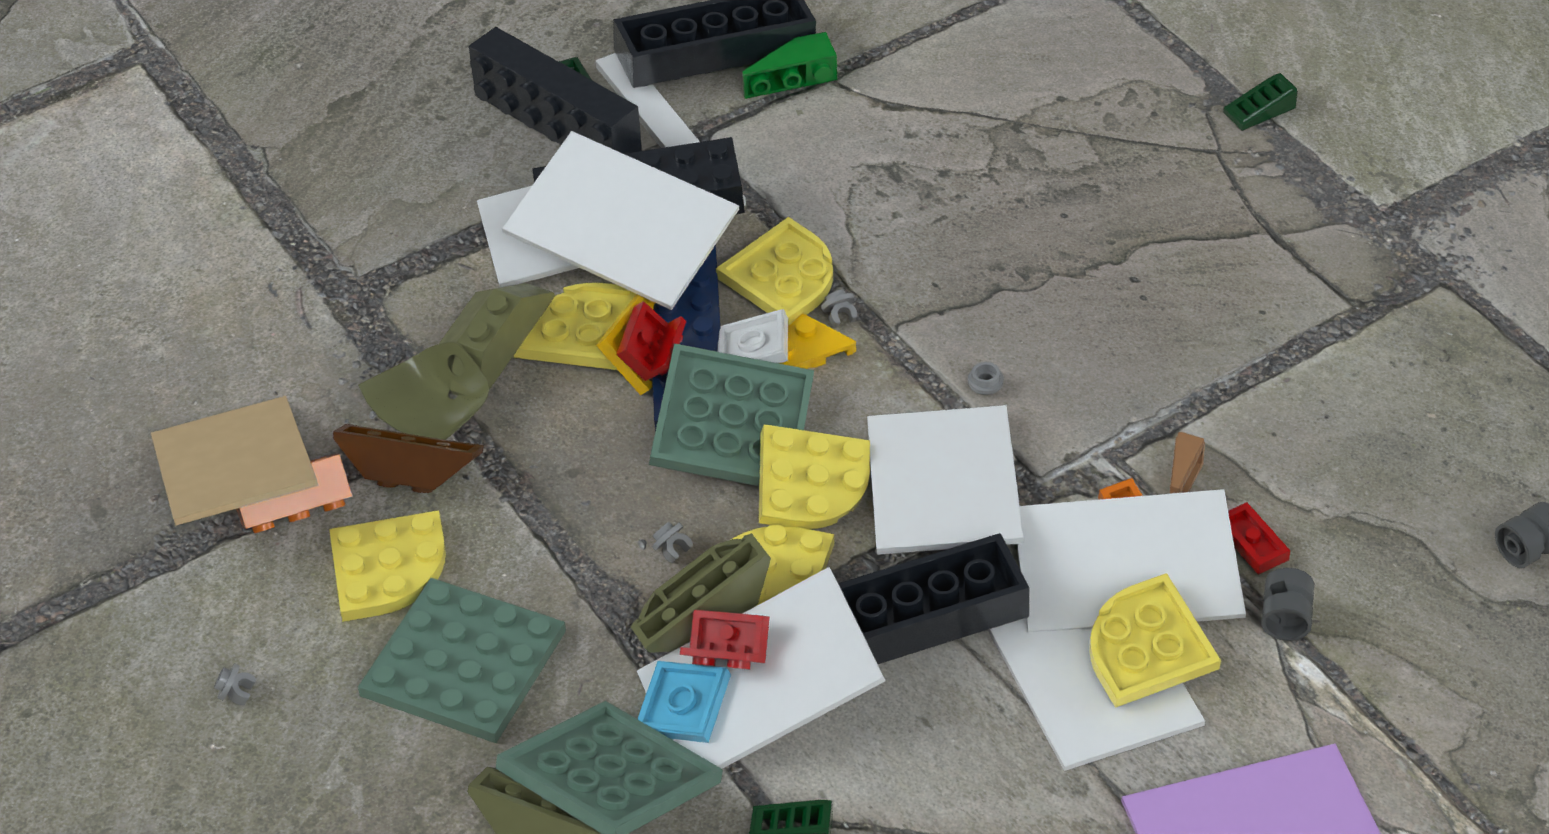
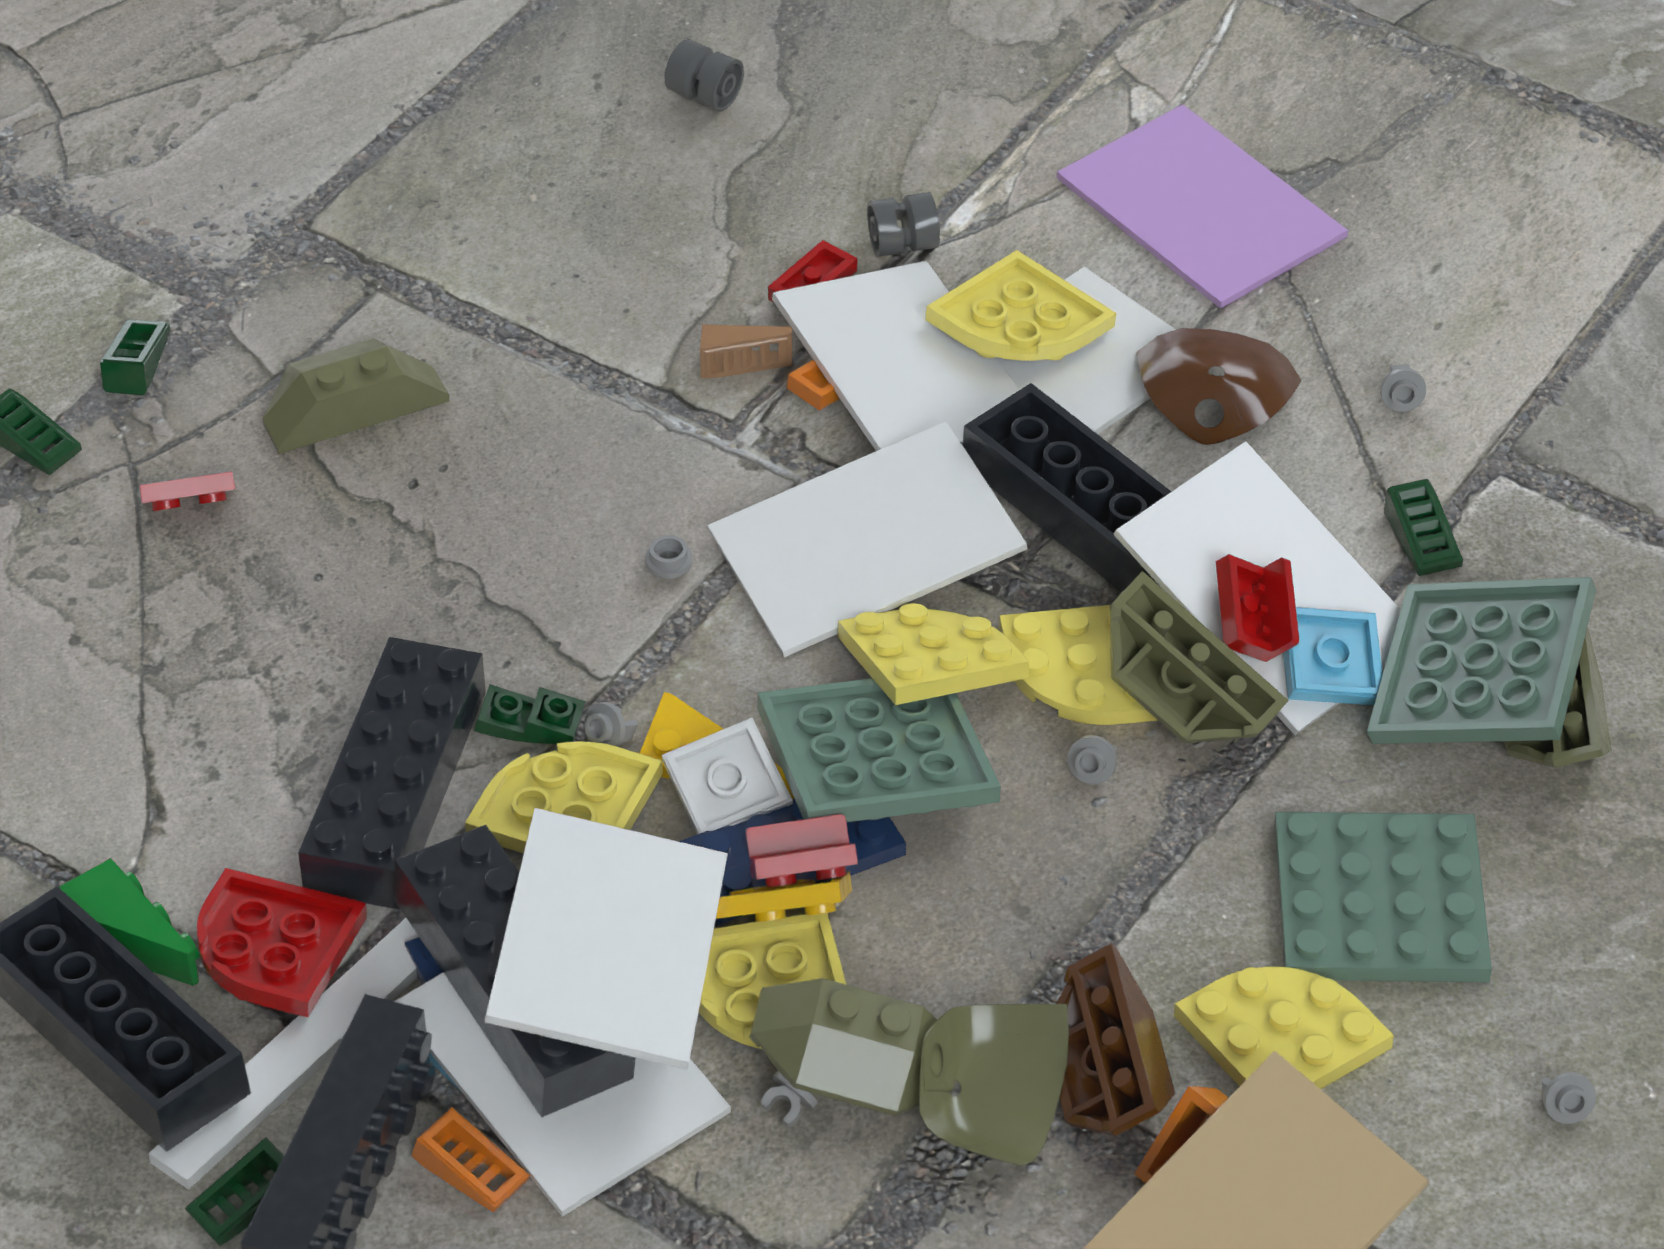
camera: 115 degrees left, 0 degrees up
(537, 158) = (455, 1128): none -> orange slope
(753, 115) = (275, 939): none -> red plate
(851, 196) = (392, 770): none -> black brick
(876, 276) = (540, 720): none -> dark green slope
(1021, 751) = (1252, 390): none -> reddish brown piece
(1167, 159) = (167, 493): none -> plate
(1237, 262) = (348, 392): none -> olive wedge
(1315, 160) = (131, 363): none -> dark green slope

